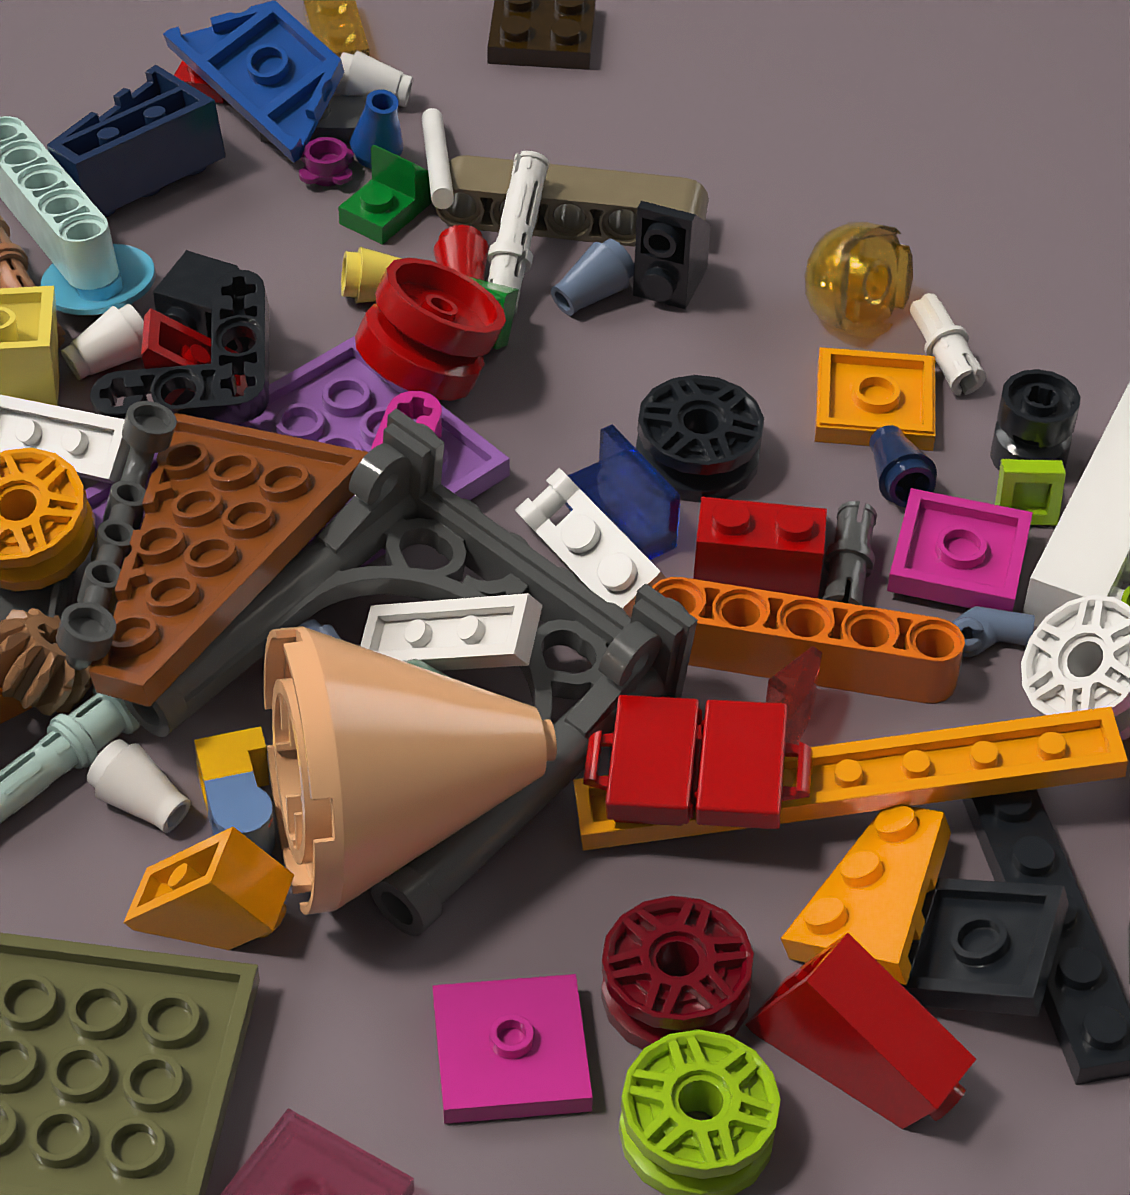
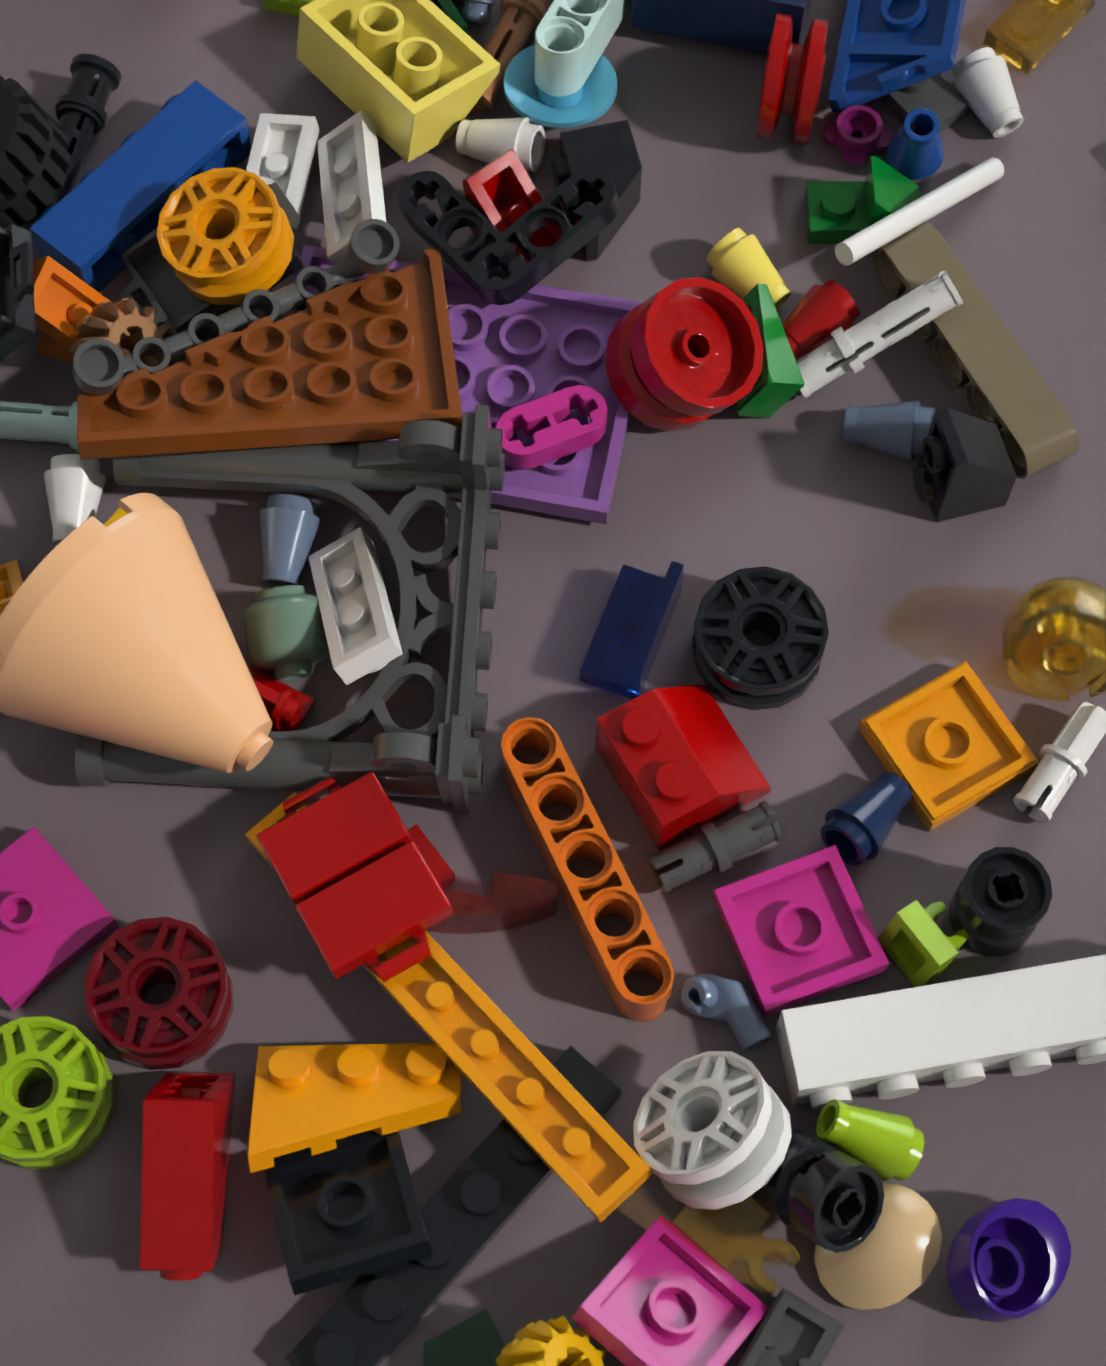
camera: 55 degrees right, 20 degrees up
(257, 149) = (792, 78): none -> red wheel
(590, 543) = (566, 638): white plate -> none

